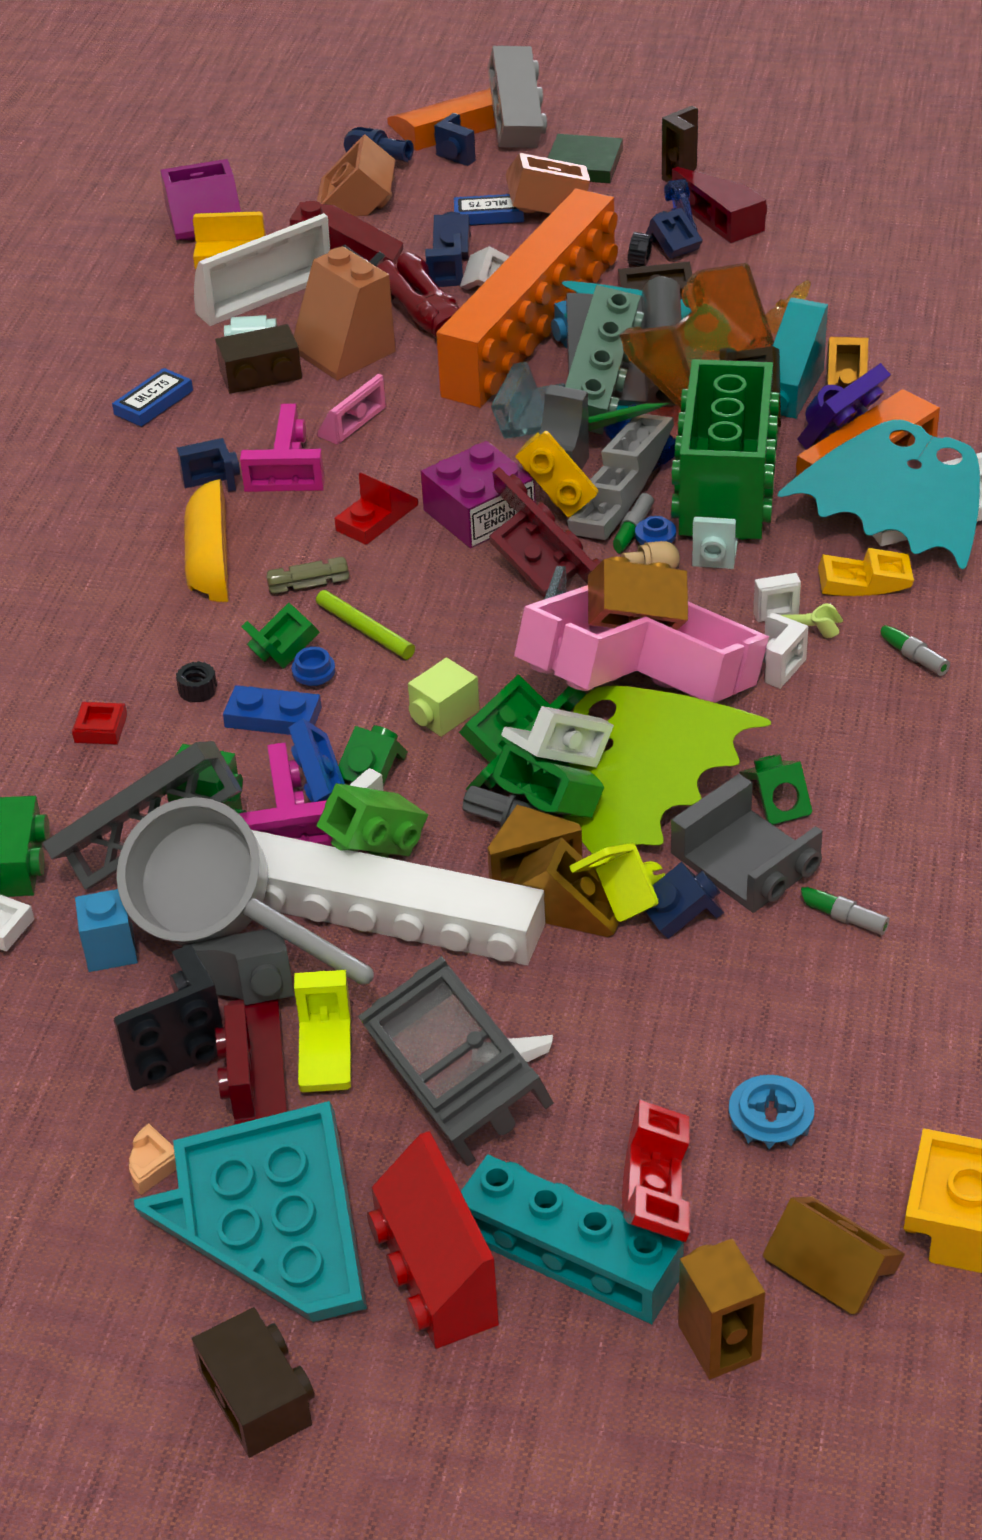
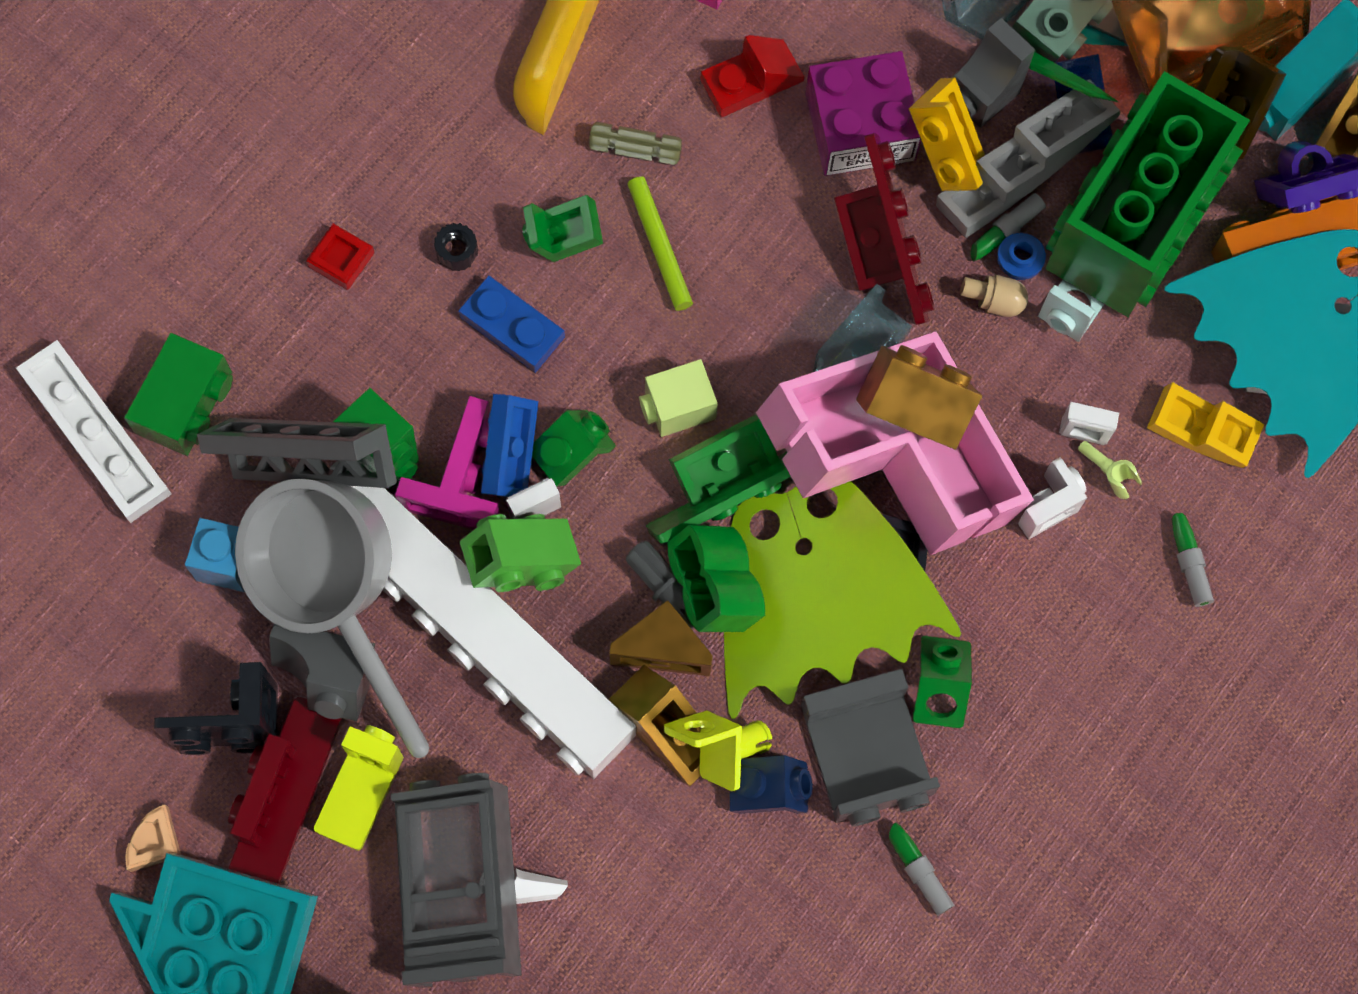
camera: 20 degrees right, 30 degrees up
(313, 666) = (577, 285): blue plate -> none
(563, 736) = (745, 540): white panel -> none

